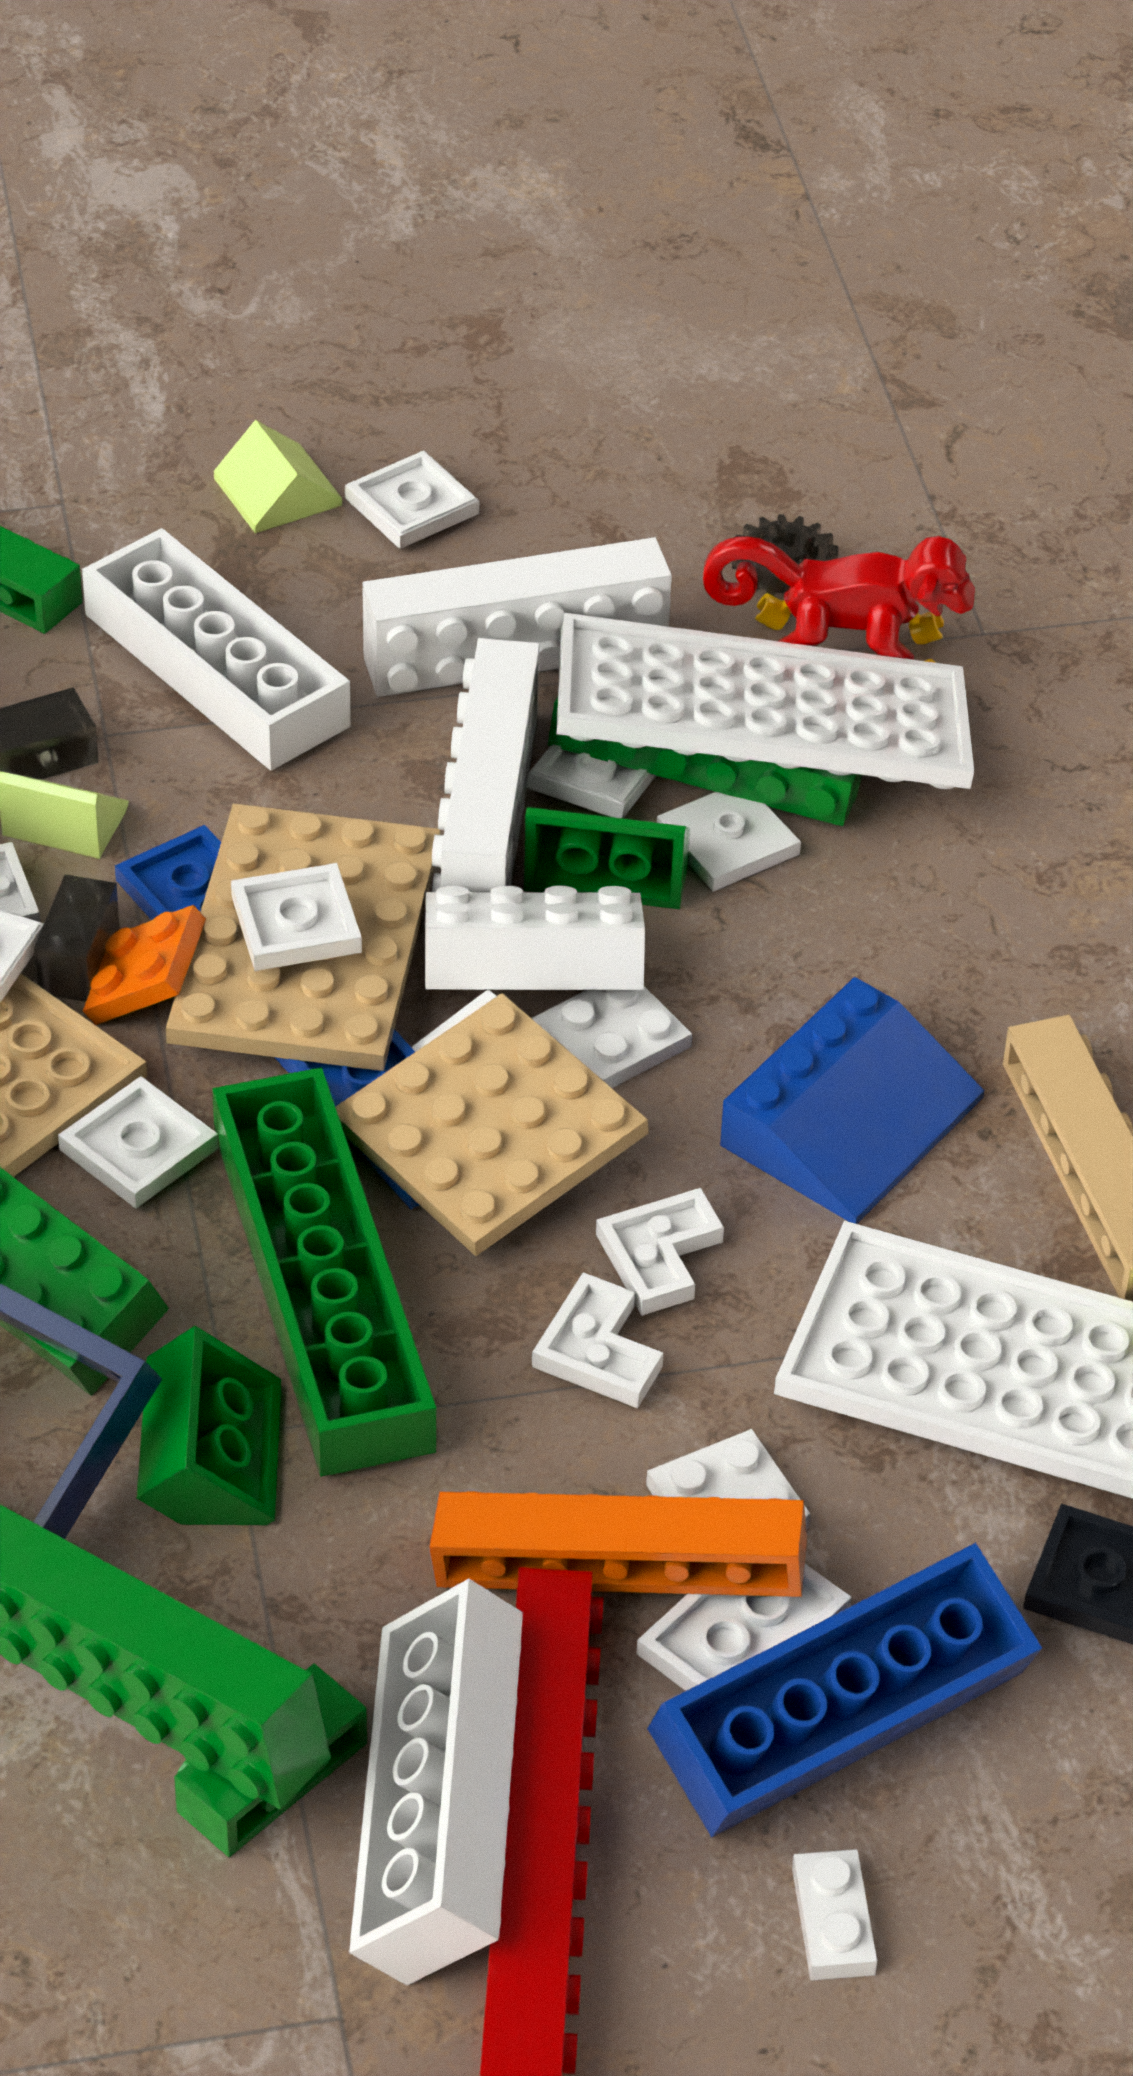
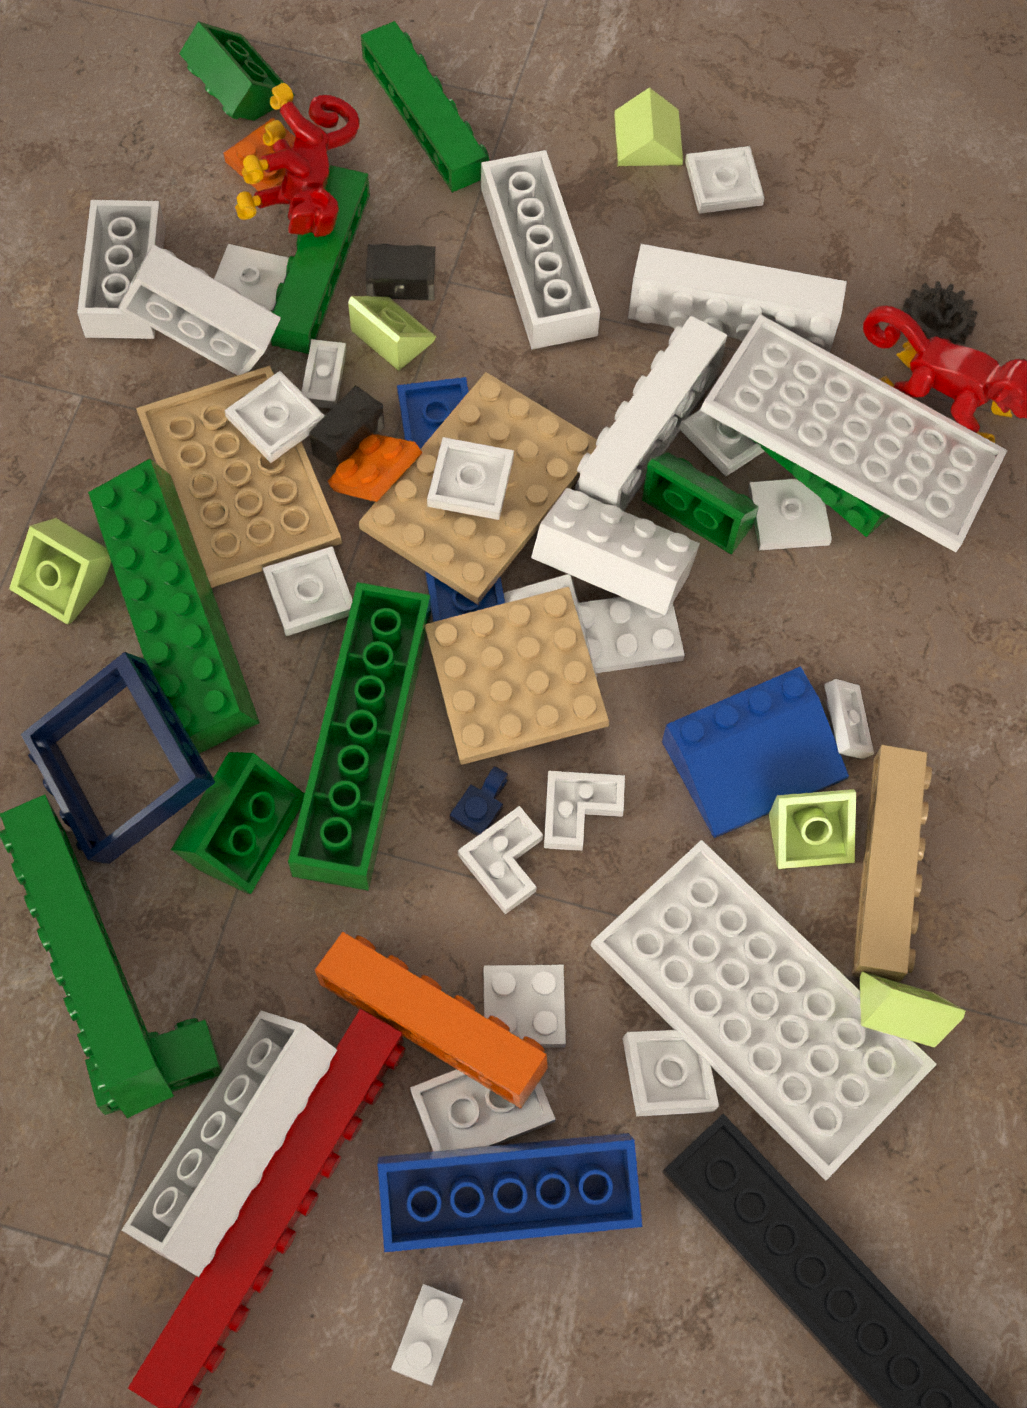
camera: 25 degrees right, 20 degrees up
(527, 1302) = (478, 807): none -> dark blue plate
(947, 1024) = (848, 719): none -> white plate
(964, 1491) = (668, 1074): none -> white plate
(976, 1153) = (814, 828): none -> yellowish green slope

